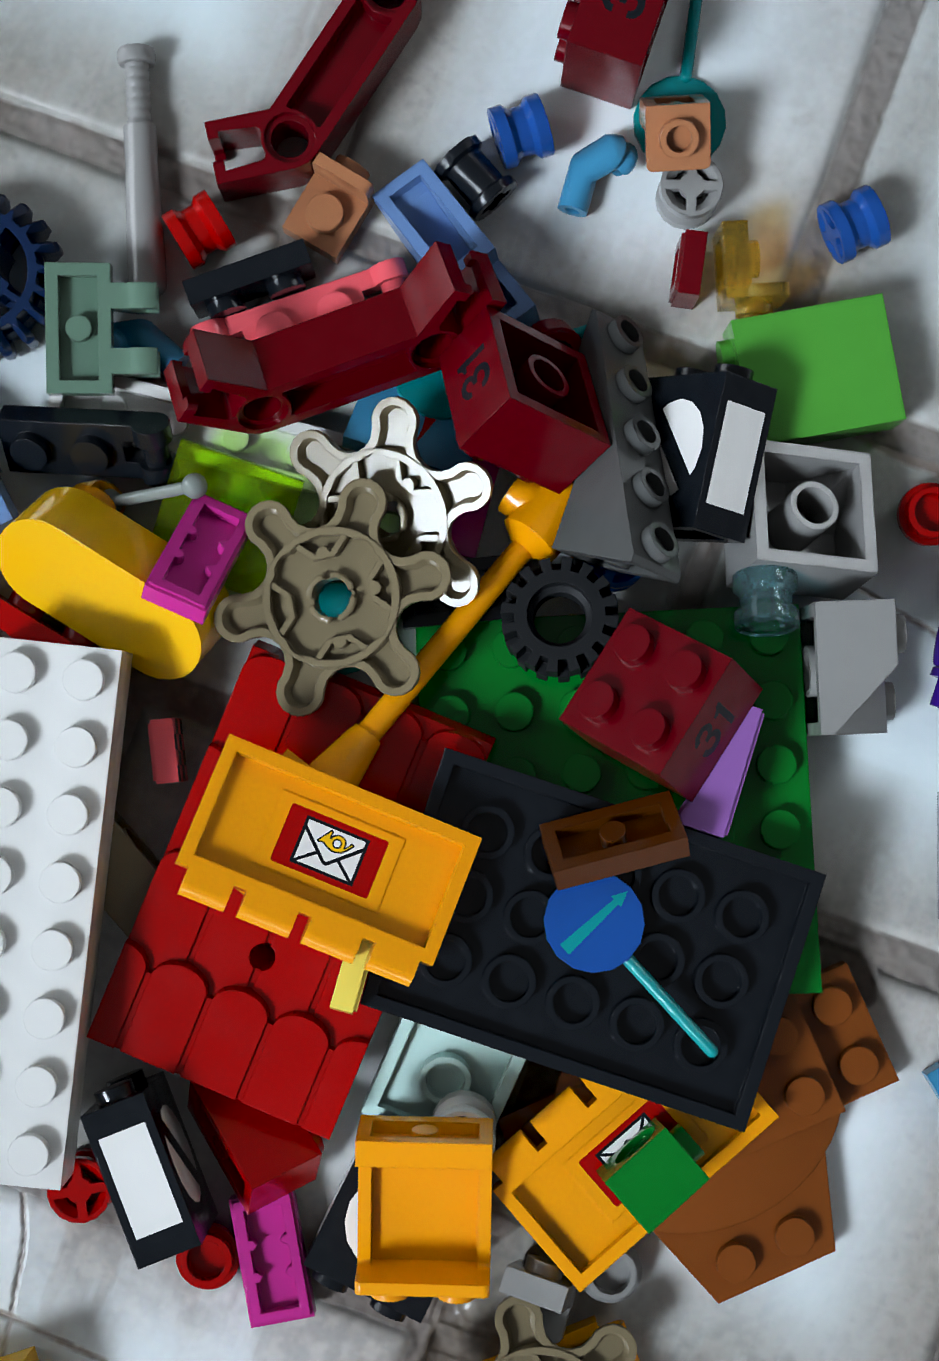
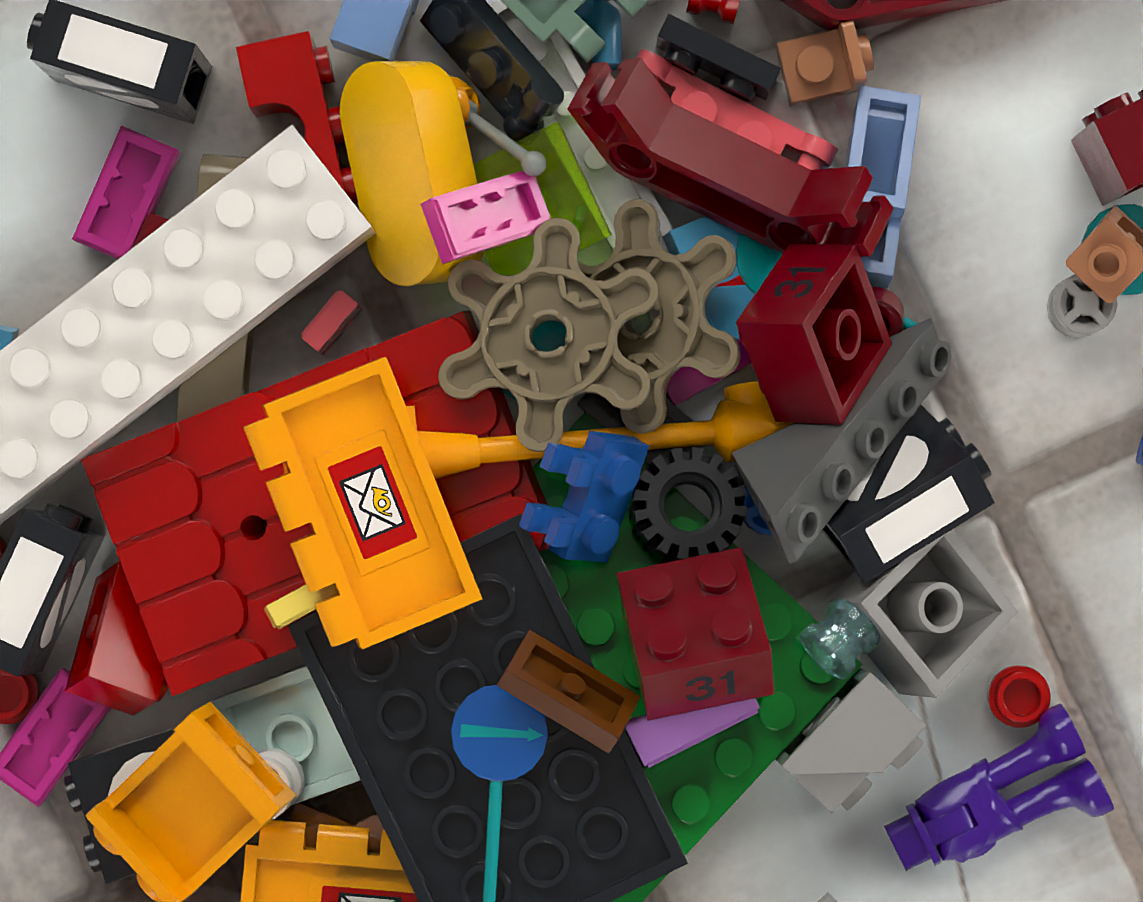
camera: 50 degrees right, 0 degrees up
(475, 177) = (944, 145): black bush -> none
(486, 673) = (597, 499): none -> blue plate
(521, 131) = (1008, 145): blue wheel -> none
(591, 164) = (1035, 217): dark azure arm -> none
(688, 269) = (1025, 357): dark red tile -> none
(735, 267) = (1060, 388): clear yellow bracket -> none
(828, 365) = (1046, 521): bright green brick -> none

